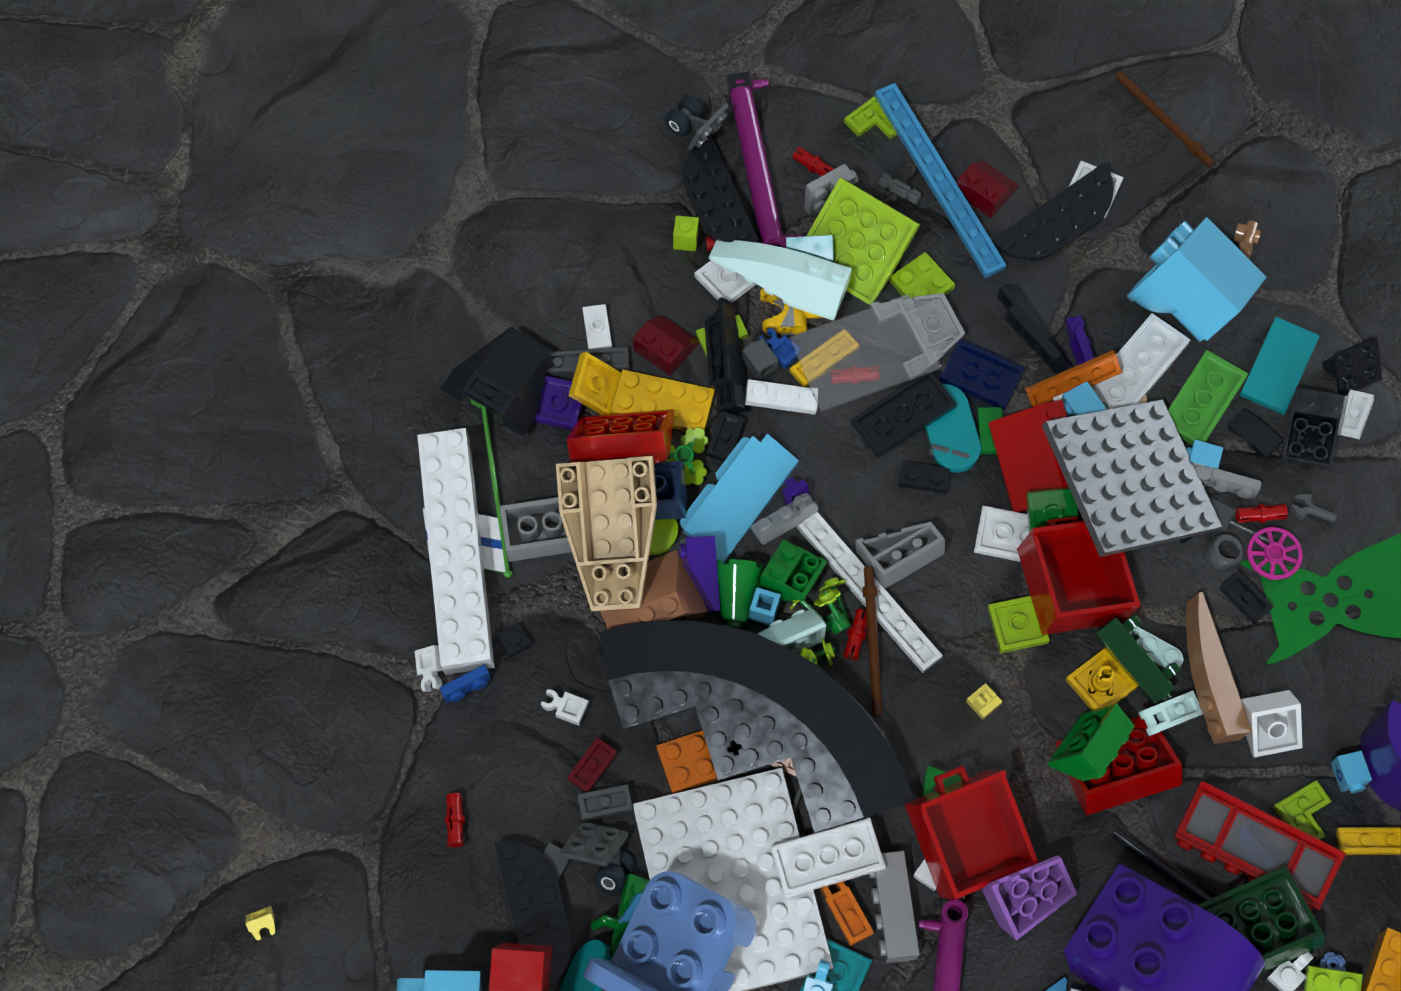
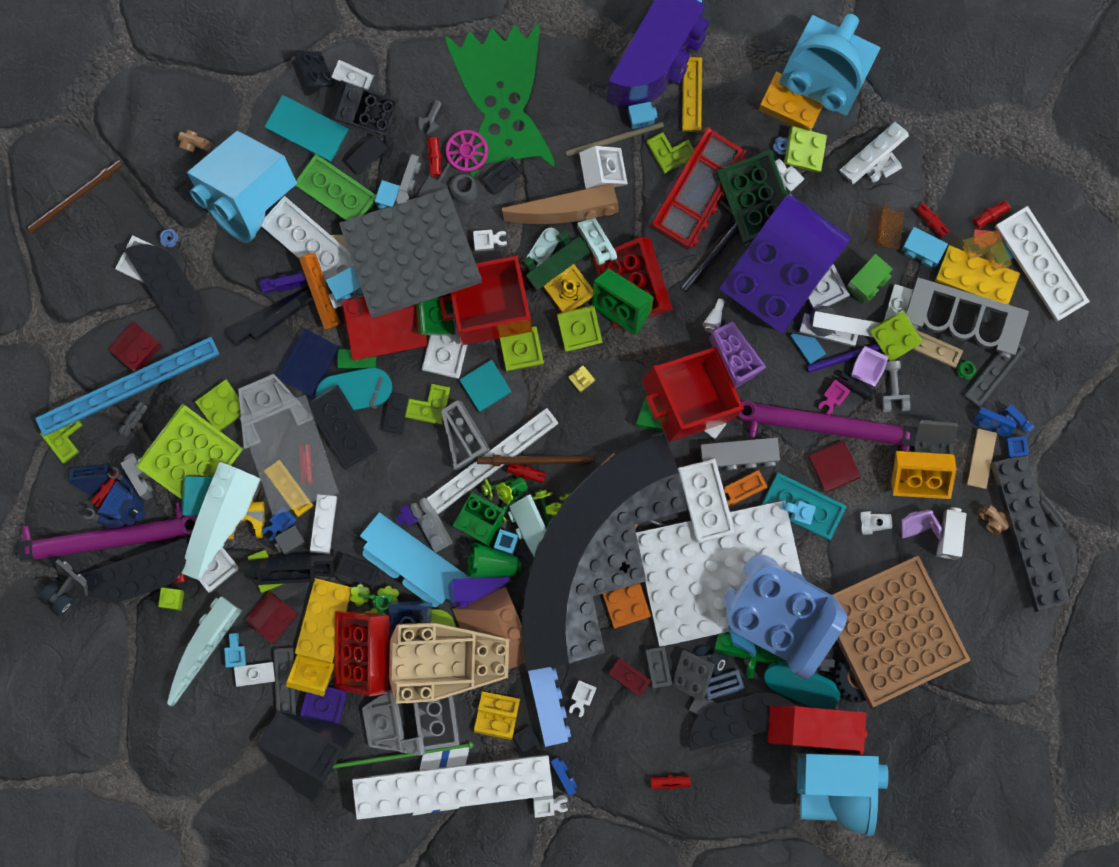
camera: 90 degrees left, 15 degrees up
(527, 471) = (385, 727): none -> light grey wing
(544, 604) = (496, 715): none -> yellow slope
(555, 664) = (548, 706): none -> light blue brick
(572, 890) = (709, 696): none -> sand blue tile
(620, 304) = (235, 655): none -> medium azure plate
(631, 268) = (205, 640): none -> light aqua wedge
(794, 173) = (121, 505): none -> dark blue torso
(828, 144) = (89, 477): none -> dark blue slope
(930, 509) = (430, 410): none -> lime tile
(966, 582) = (485, 386): none -> teal tile
(1051, 694) = (579, 328): none -> lime plate
(1081, 873) = (713, 321): none -> white cone
(1124, 212) = (169, 233): none -> medium blue plate
(1159, 578) = (485, 240): none -> white plate
(1316, 745) = (615, 138): none -> dark tan axle

